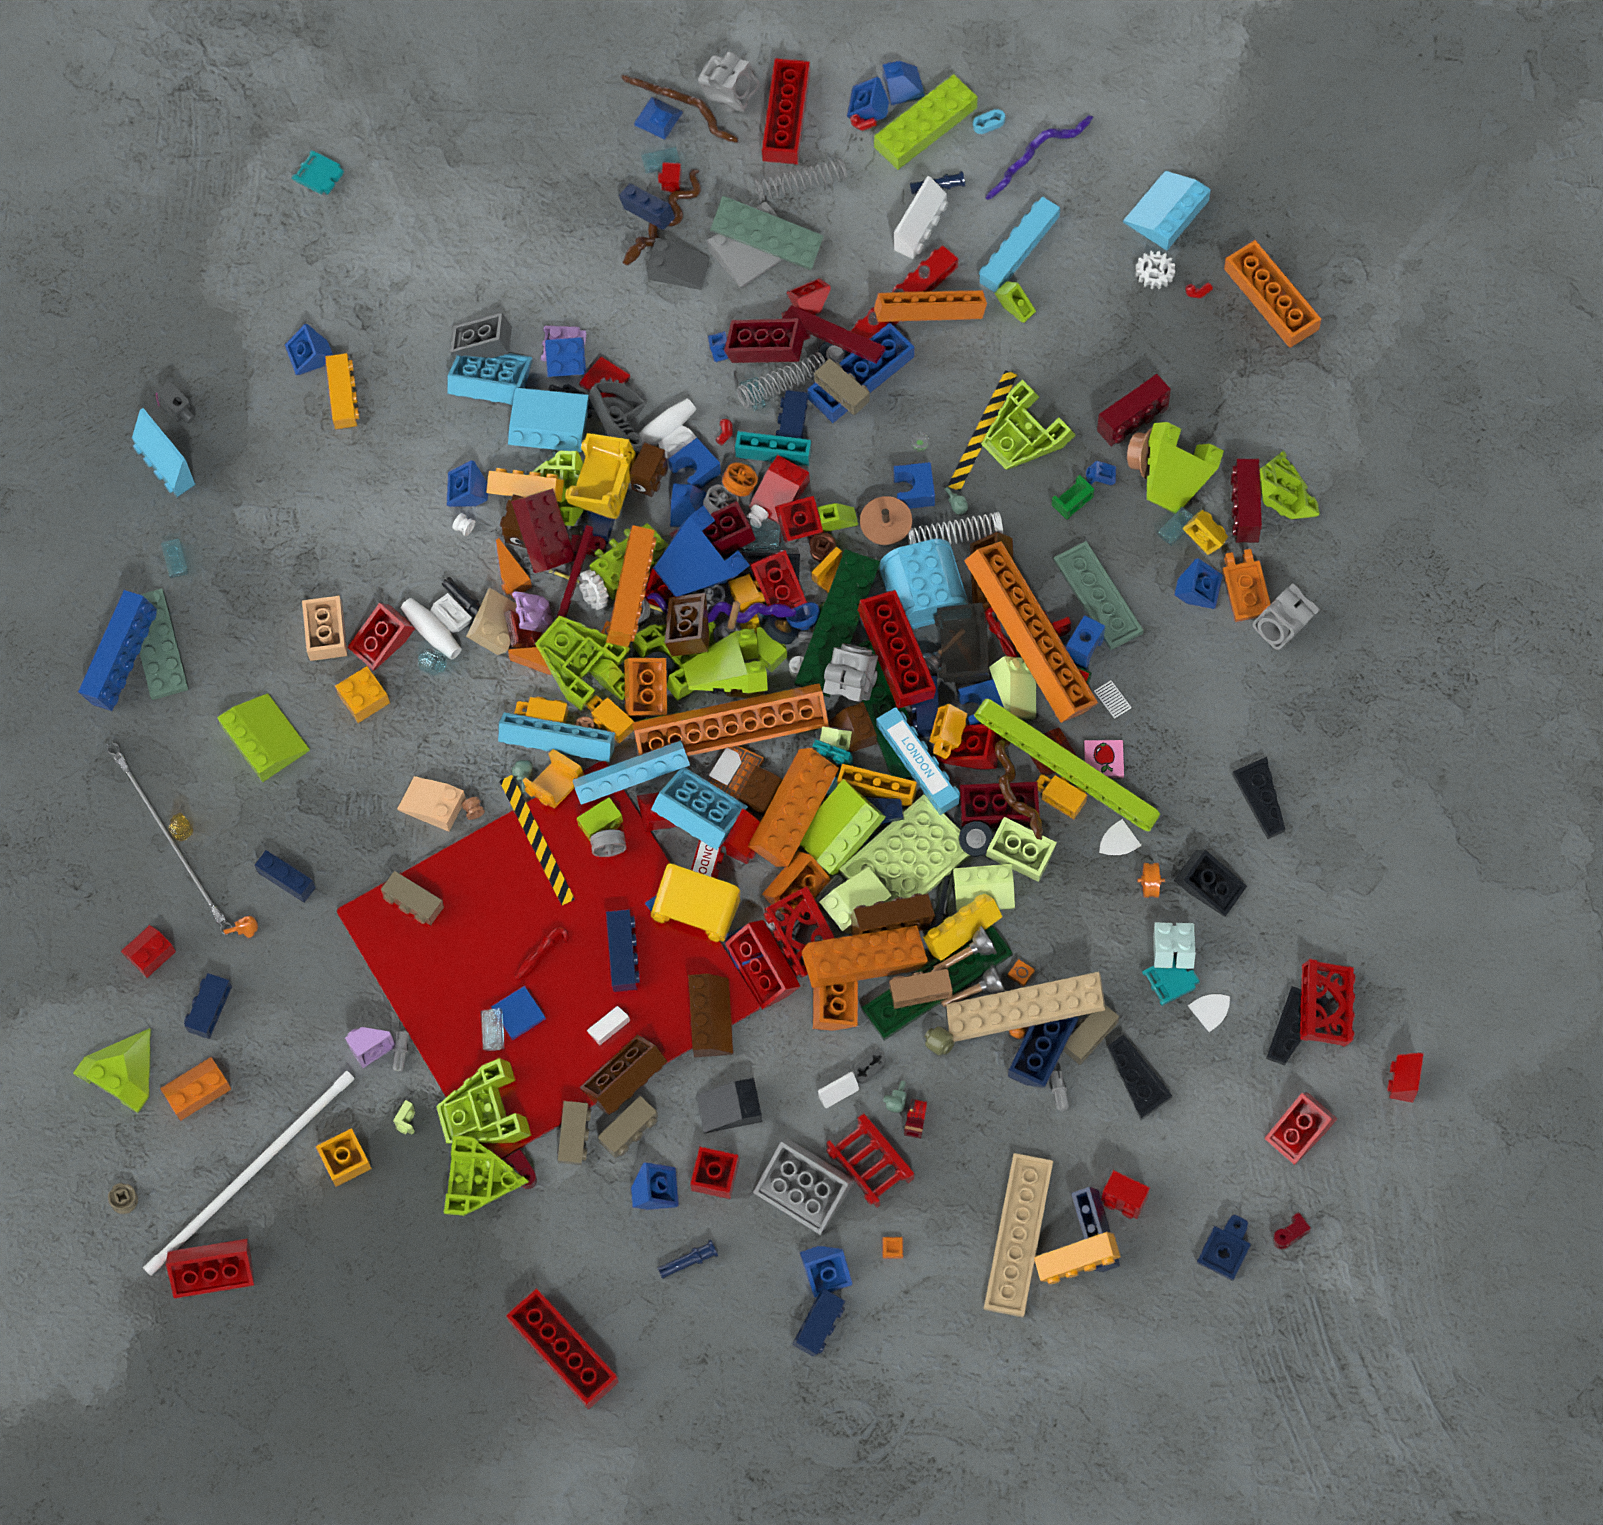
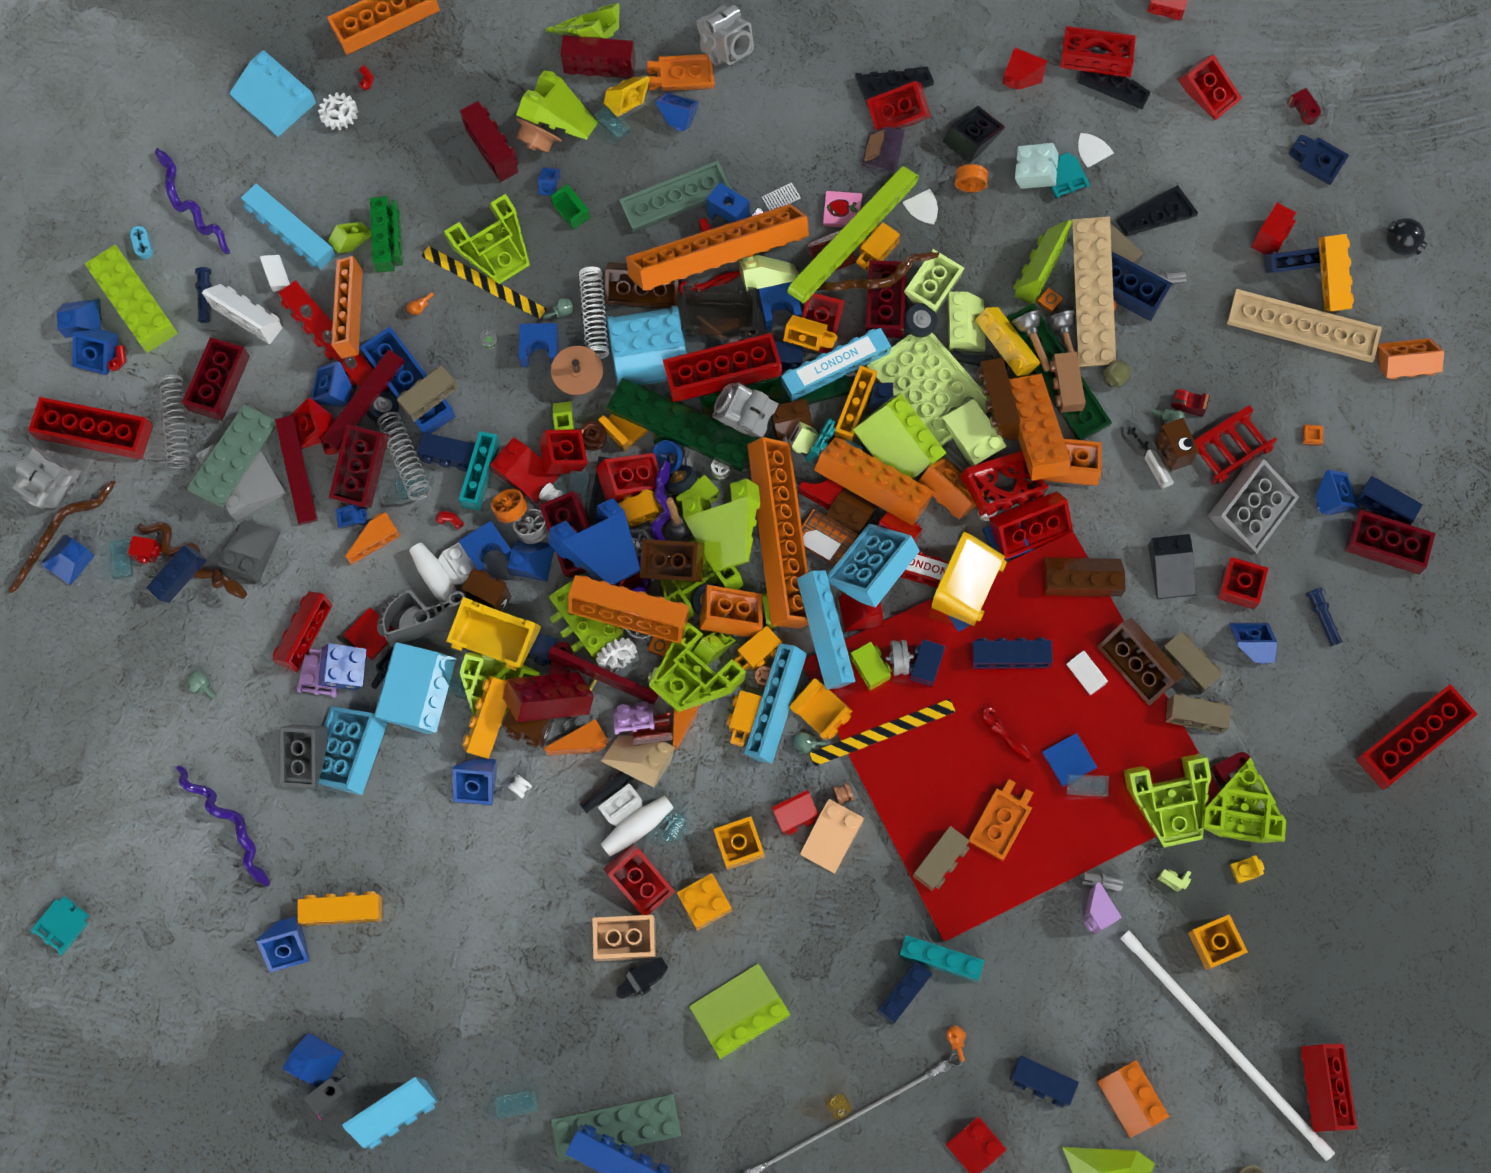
camera: 85 degrees left, 5 degrees up
(207, 389) = (313, 1060): none -> blue slope
(289, 648) = (642, 978): none -> black hinge
(318, 906) = (941, 958): none -> teal brick
(373, 318) = (240, 825): none -> dark purple animal
(418, 717) = (739, 843): none -> light orange brick
(419, 1188) = (1247, 869): none -> yellow bracket
(449, 763) = (795, 813): none -> slope
(453, 952) = (1001, 821): none -> orange tile
(546, 245) = (200, 683): none -> sand green piece
(599, 321) = (302, 631): none -> red slope
(607, 872) = (927, 662): none -> dark blue brick
(701, 368) = (374, 536): none -> orange slope
(762, 291) = (296, 470): none -> dark red tile
(772, 1322) = (1390, 542): none -> dark red brick
(779, 762) = (821, 493): none -> red arch
(847, 207) = (216, 379): none -> dark red brick
(850, 308) = (331, 386): none -> blue slope
(861, 1098) = (1176, 444): none -> reddish brown brick
(945, 371) = (417, 306): none -> orange piece
(969, 241) = (275, 272): none -> white slope
(991, 1345) = (1410, 358): none -> orange slope
(1012, 327) = (381, 234): none -> green brick
(1054, 957) = (1042, 262): none -> lime slope
(1136, 1341) = (1406, 237): none -> black brick
(1179, 794) = (884, 149): none -> clear purple slope
(1229, 803) = (899, 107): none -> red slope
(1289, 924) = (1024, 70): none -> red slope

